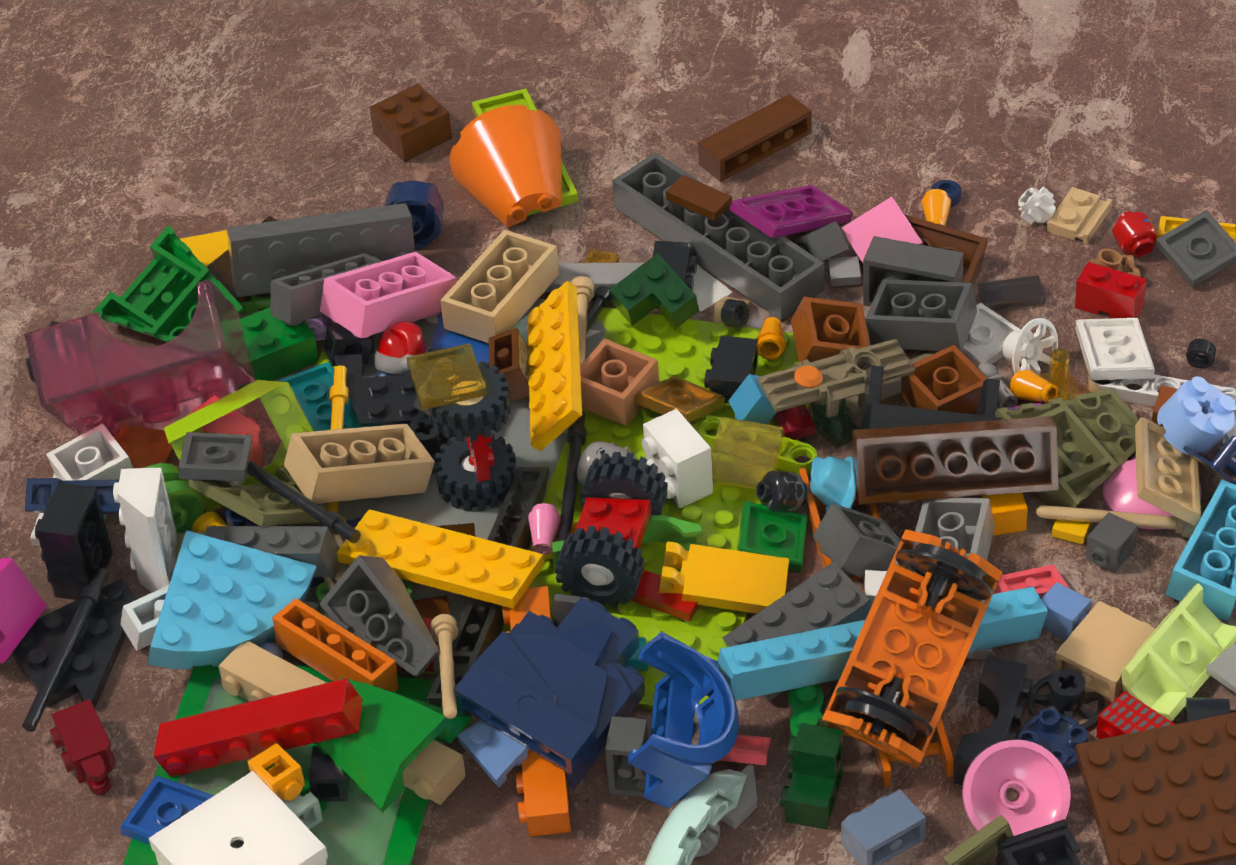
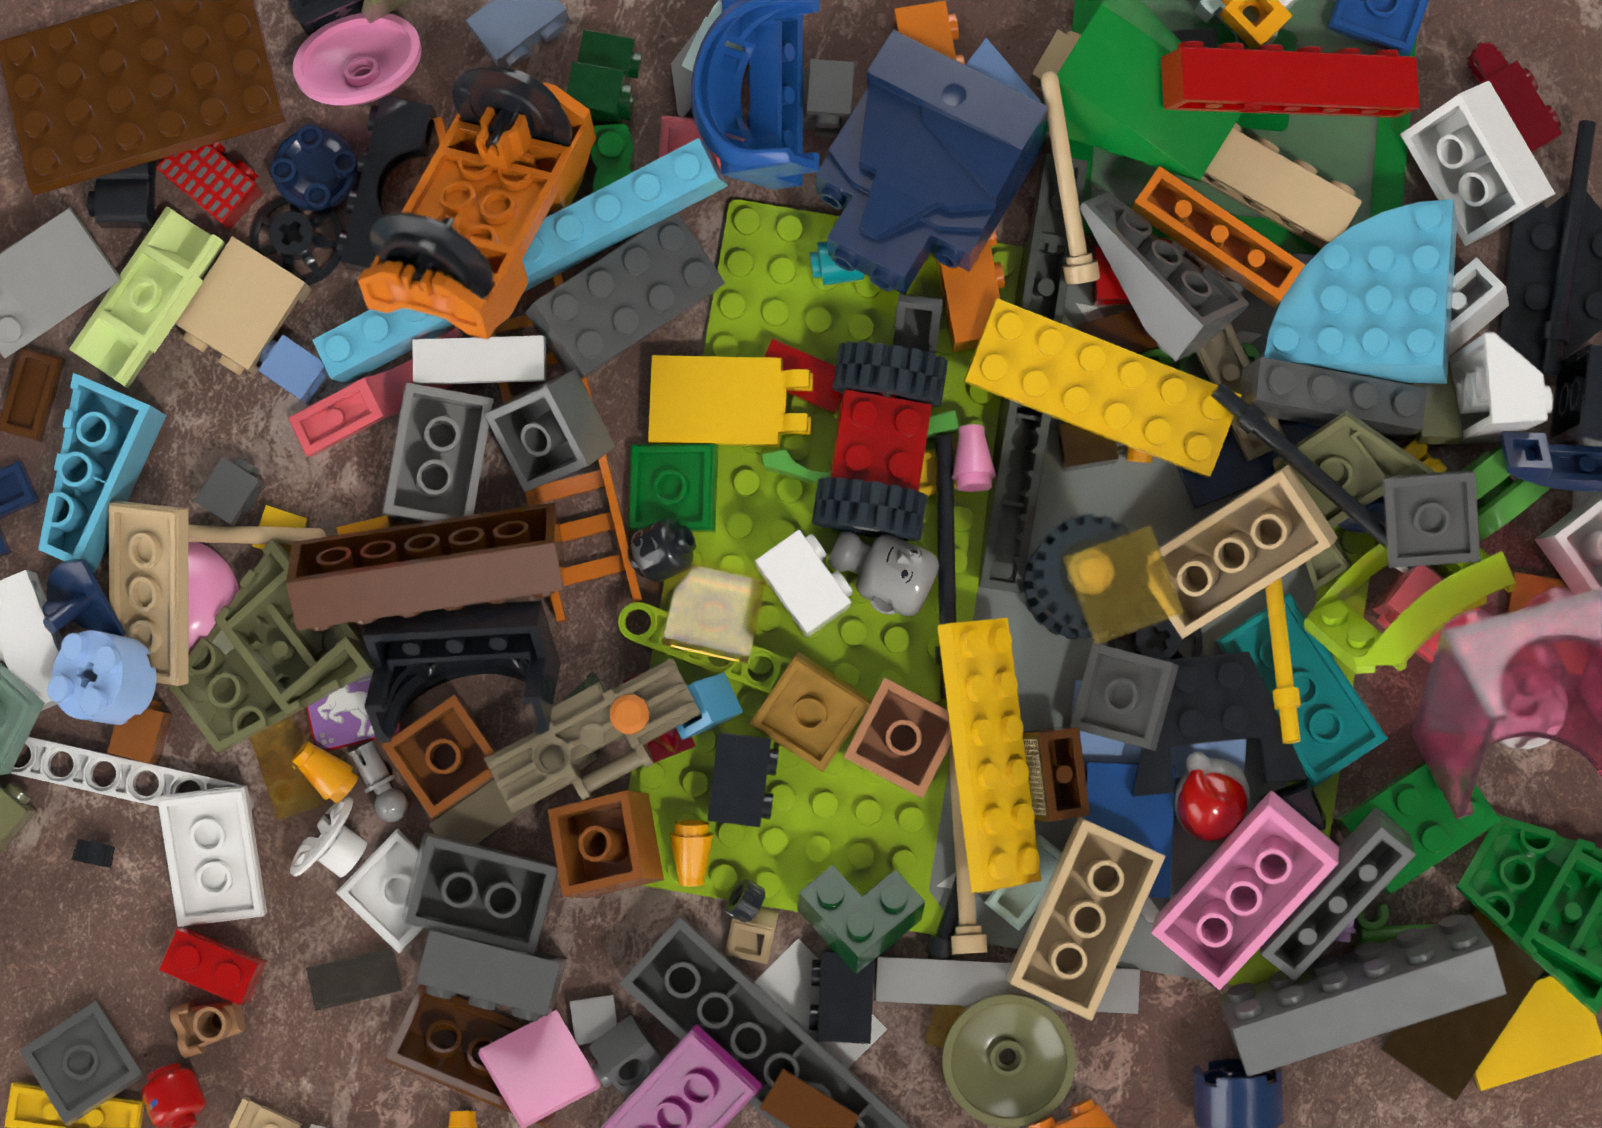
camera: 170 degrees right, 40 degrees up
(121, 692) = (1479, 161): none -> white brick
(572, 228) = (1016, 1090): none -> olive dish
(833, 481) = (591, 557): medium azure piece -> none

